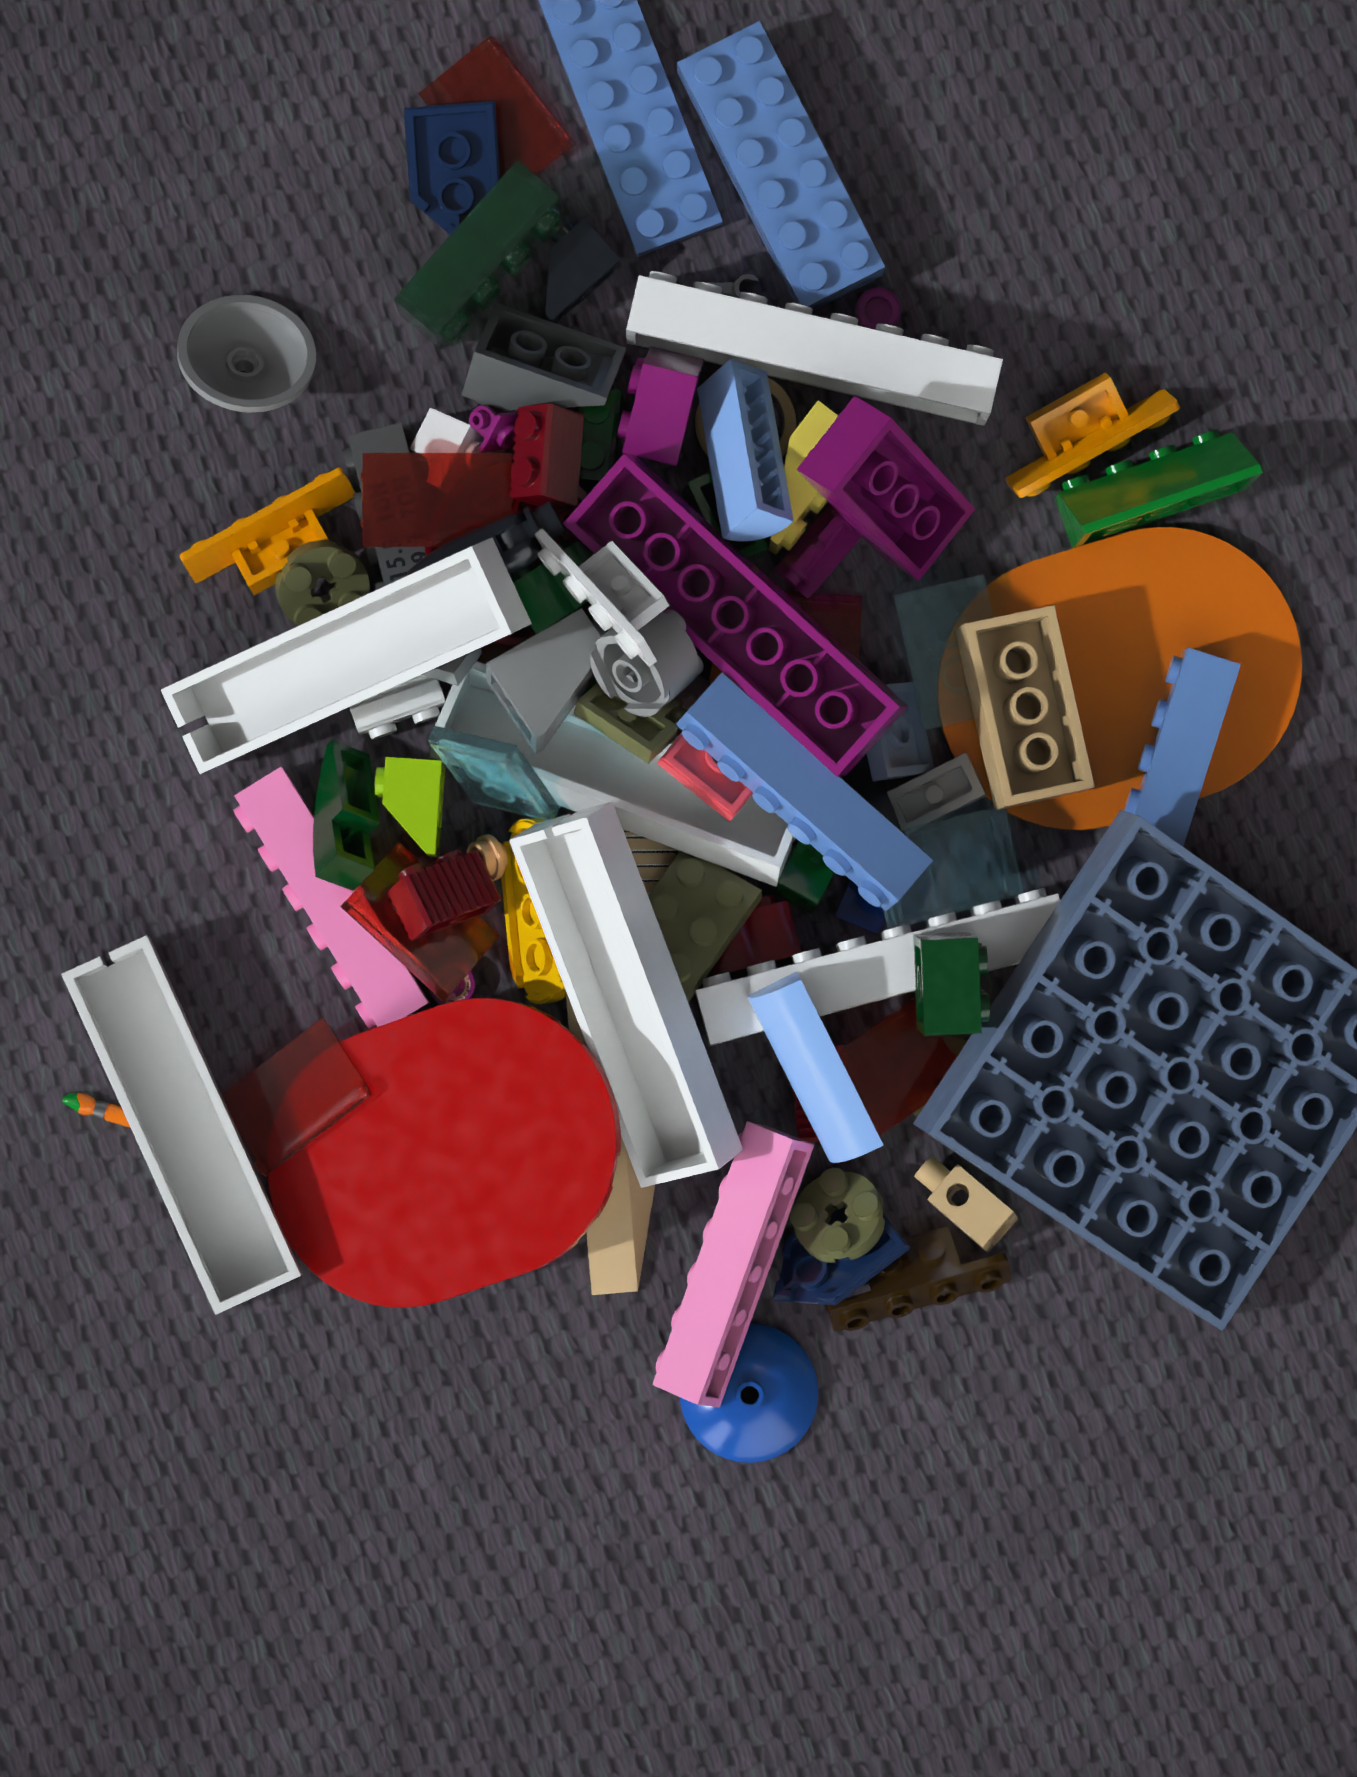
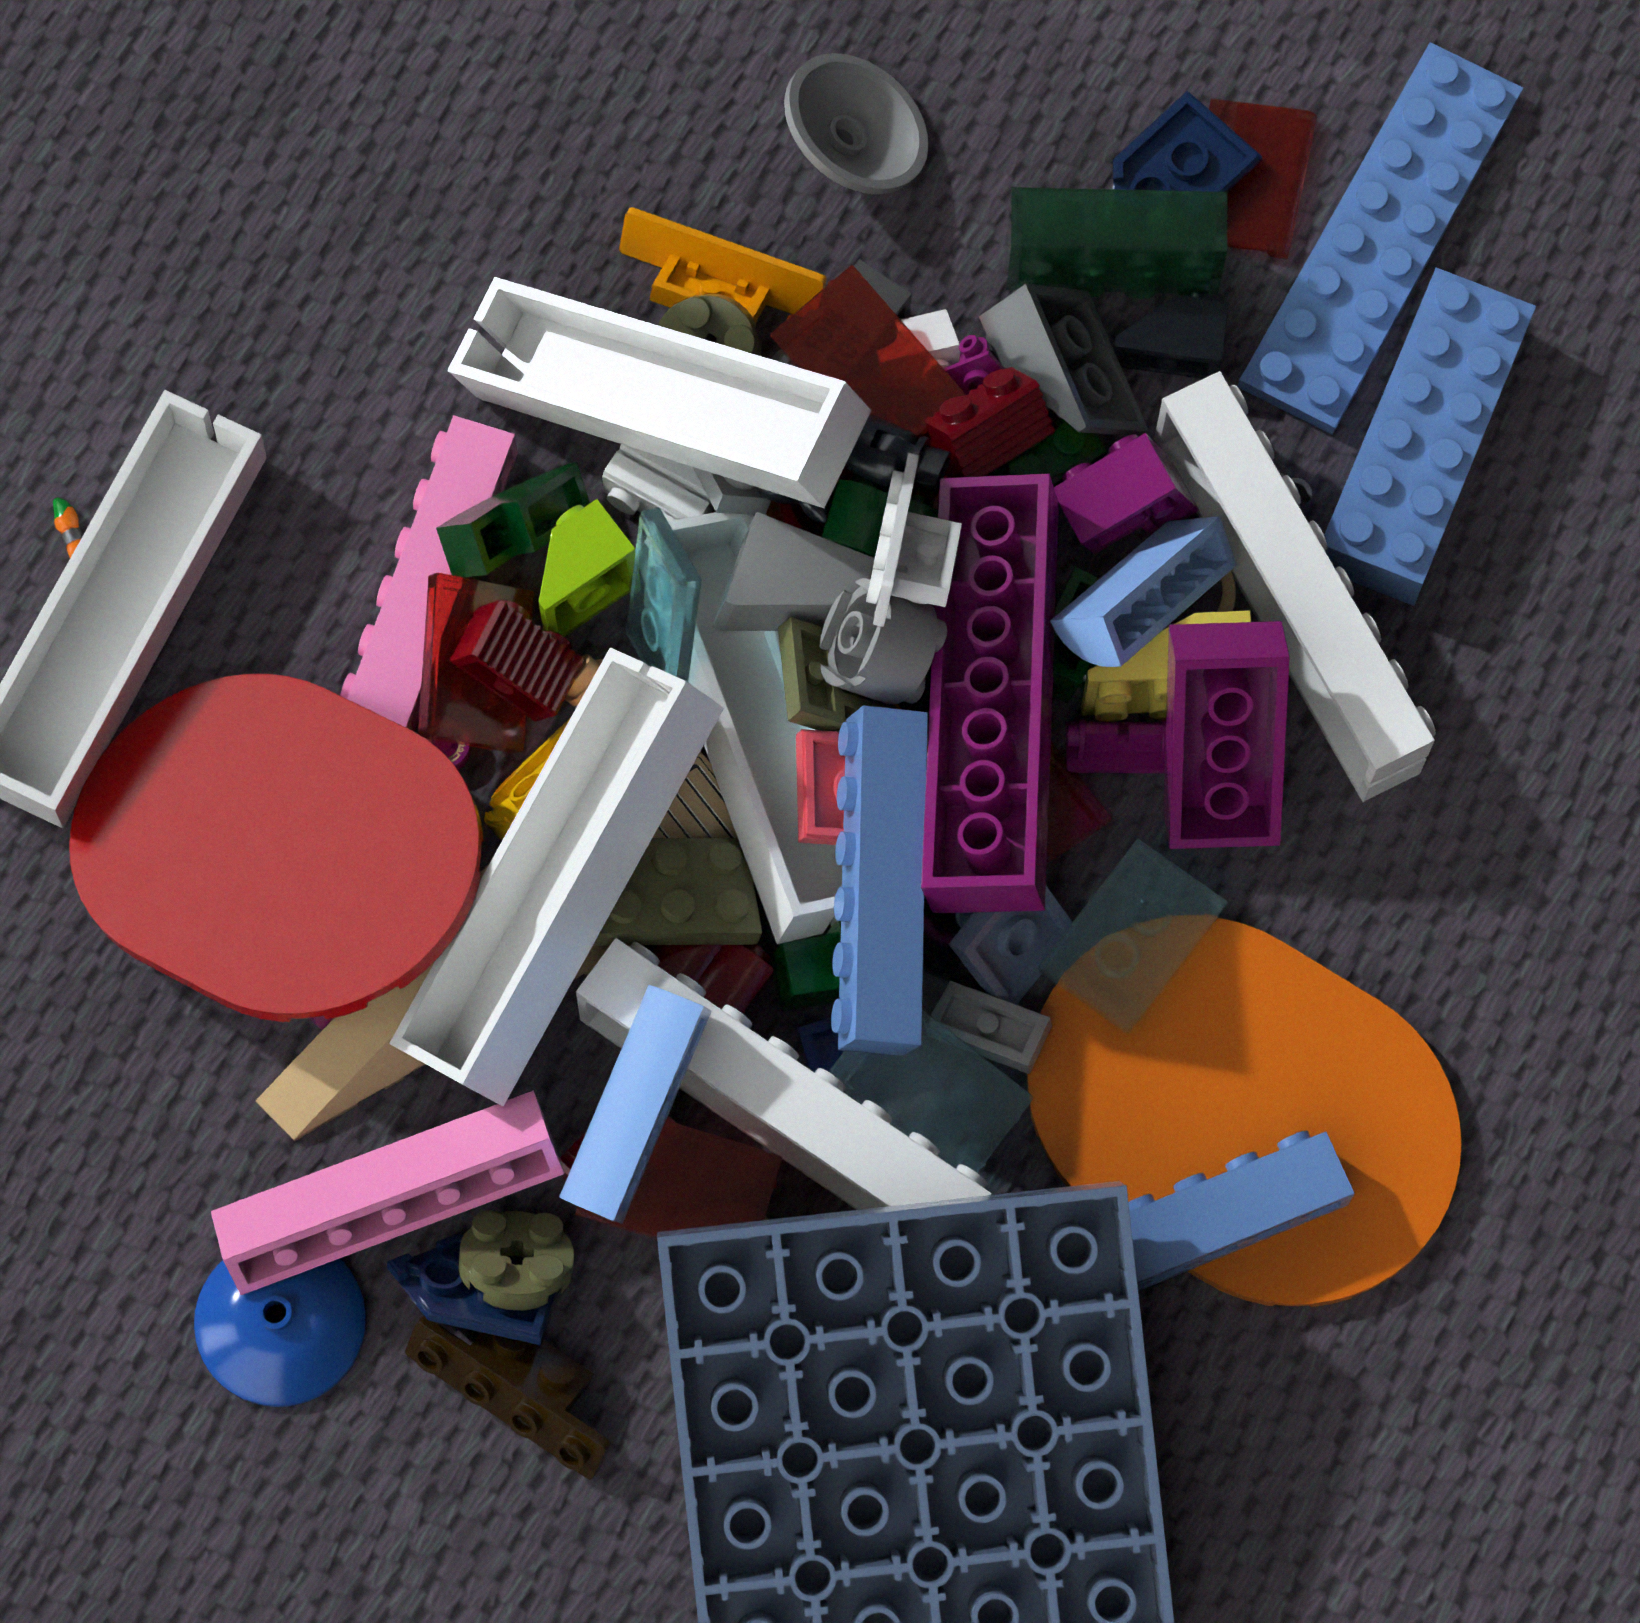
camera: 55 degrees right, 15 degrees down
(295, 1096) = (223, 685): clear red piece -> none
(877, 307) = (1388, 618): magenta tile -> none
(949, 983) = (817, 1147): dark green brick -> none
(981, 1217) = (628, 1371): tan torso -> none
(1024, 707) = (1137, 1031): tan brick -> none
(1083, 427) = (1443, 881): light orange bracket -> none
(1155, 489) = (1441, 991): green slope -> none

